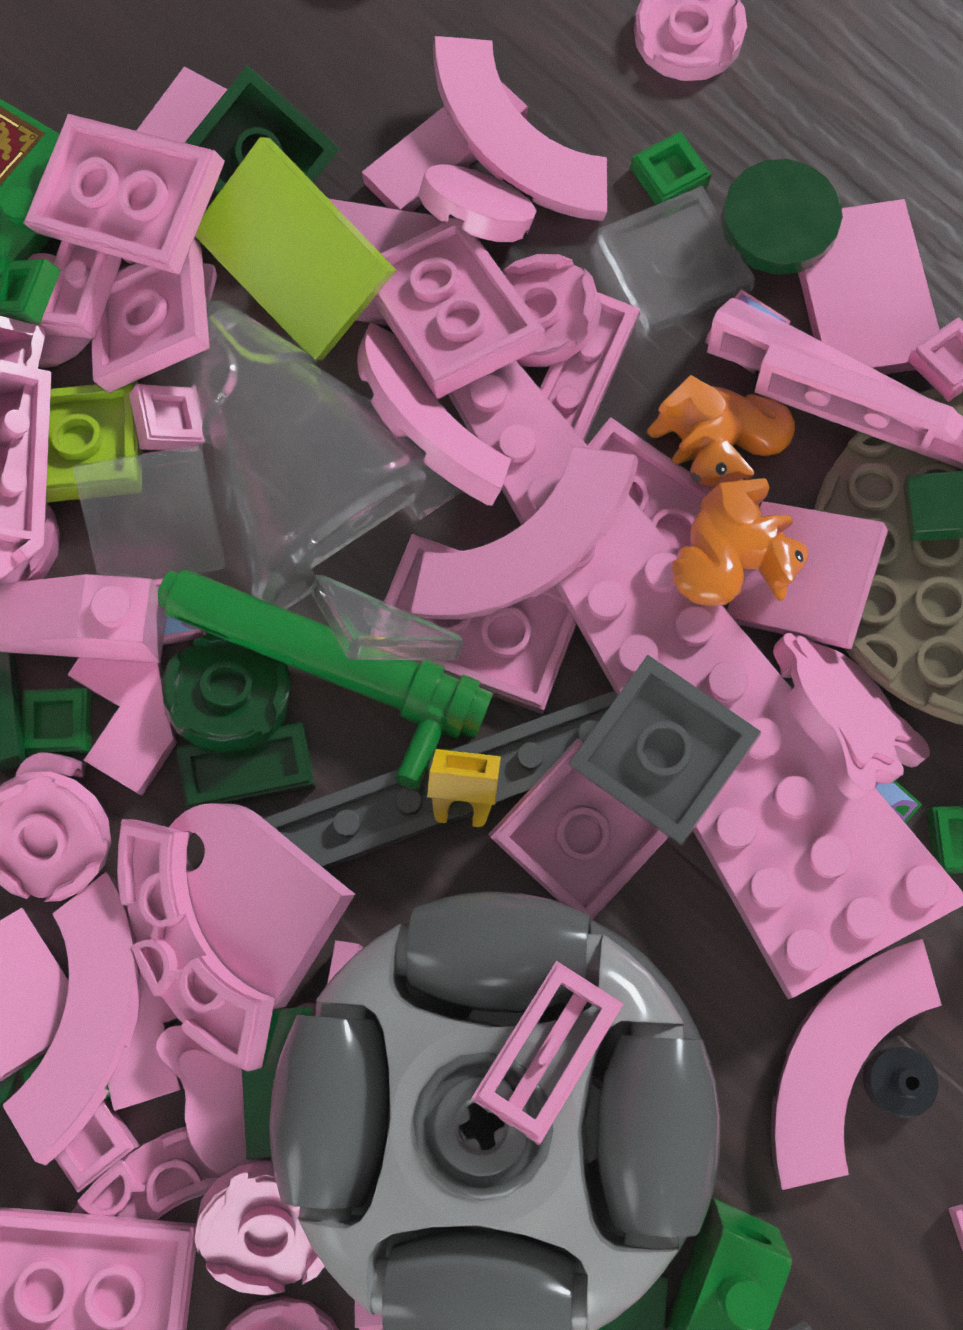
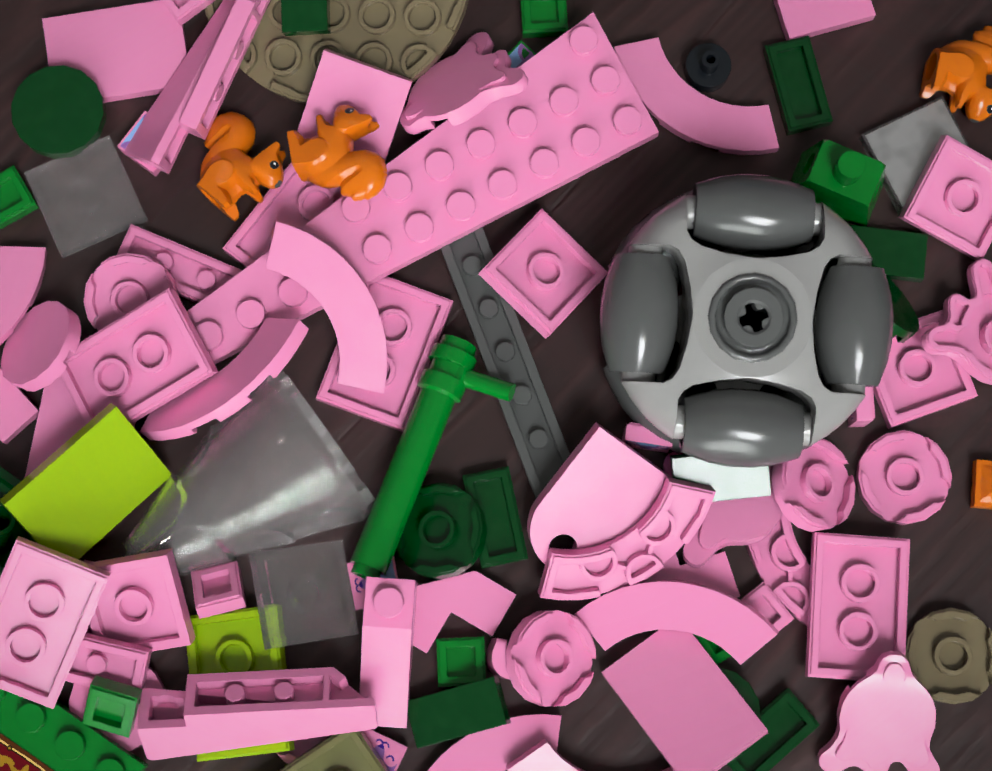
camera: 95 degrees left, 5 degrees up
(378, 630) = (396, 419): clear tile -> none
(466, 779) = (511, 350): yellow tile -> none
(511, 1110) = (744, 296): bright pink tile -> none
(665, 749) = (493, 208): dark grey plate -> none
(882, 1224) = (797, 85): none -> dark green tile

